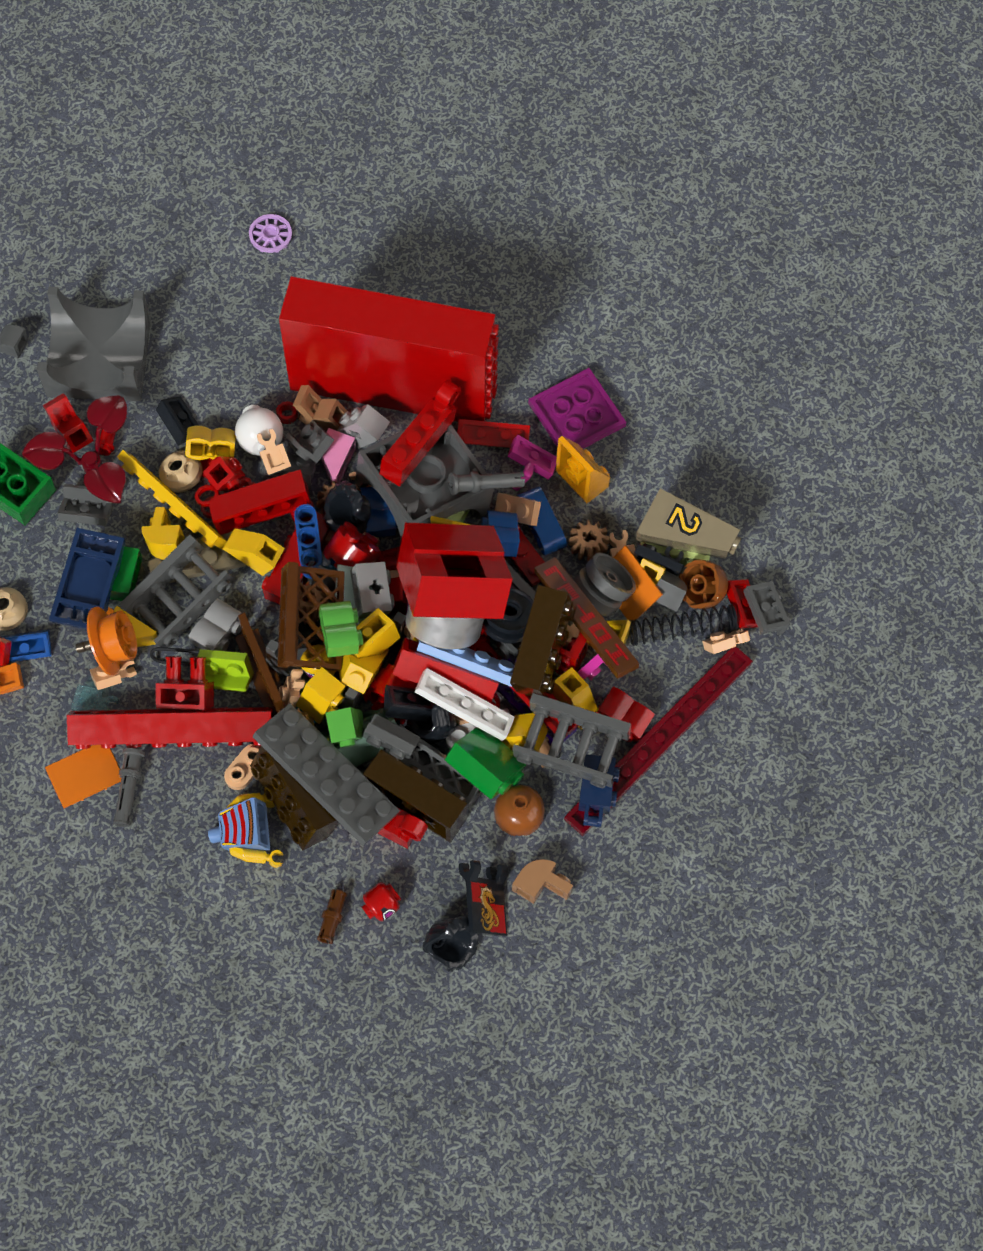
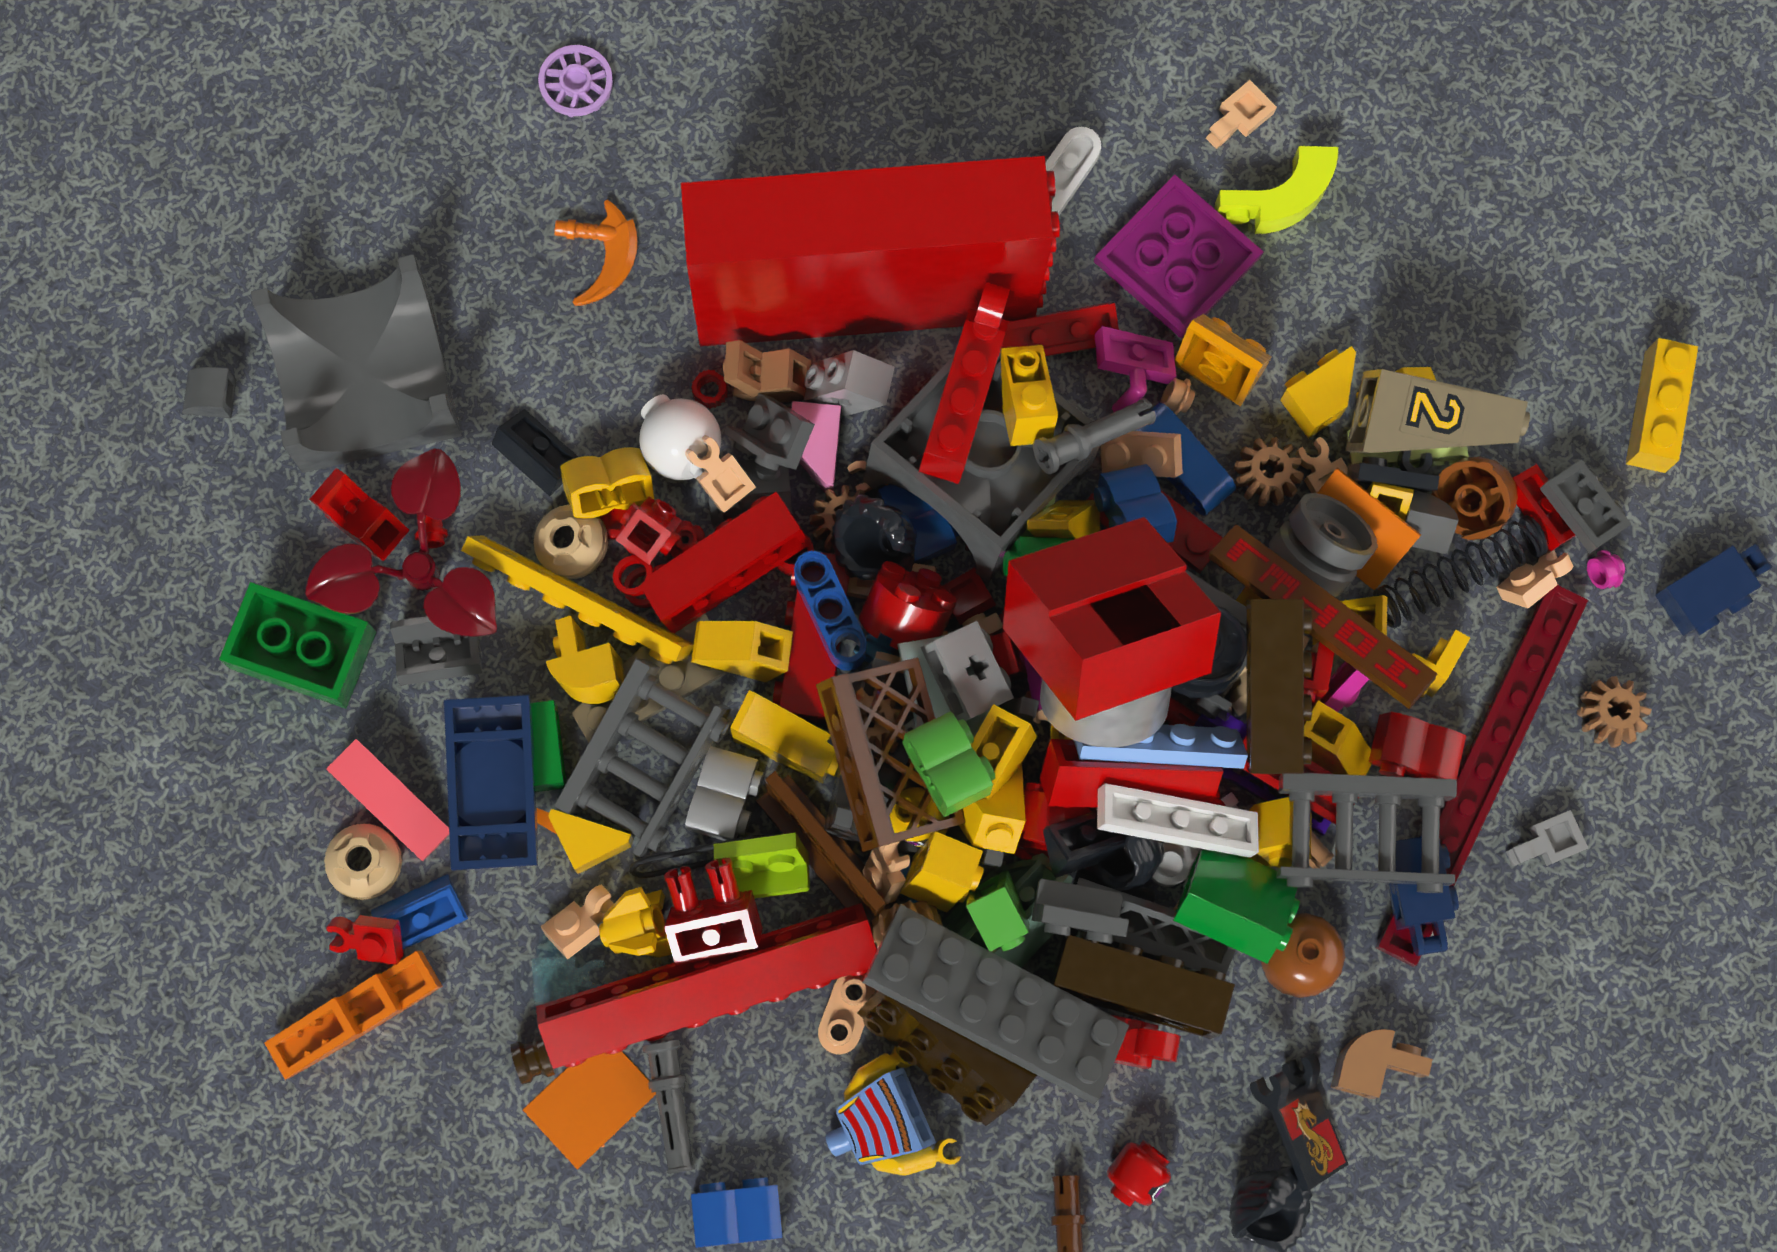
camera: 20 degrees left, 10 degrees up
(29, 577) = (389, 800): none -> coral slope
(57, 739) = (531, 1060): none -> dark brown wheel
(110, 639) = (566, 877): orange piece -> none
(141, 682) = (636, 924): none -> yellow brick
(143, 856) = (736, 1214): none -> blue brick
(256, 601) = (784, 737): none -> yellow slope
(263, 328) = (620, 250): none -> orange piece
(454, 449) = (1027, 395): none -> yellow slope
(525, 352) = (1072, 163): none -> white plate
(551, 487) = (1178, 395): none -> light nougat plate
(632, 506) = (1323, 394): none -> yellow slope
(640, 344) = (1242, 111): none -> light nougat plate
(650, 399) = (1287, 203): none -> neon yellow arch
(651, 670) = (1443, 659): none -> yellow bracket
(689, 788) = (1552, 839): none -> light grey plate
(743, 733) = (1618, 727): none -> medium nougat gear
(770, 648) = (1606, 570): none -> dark pink plate
(830, 675) = (1712, 588): none -> dark blue brick
(831, 566) = (1662, 405): none -> yellow brick

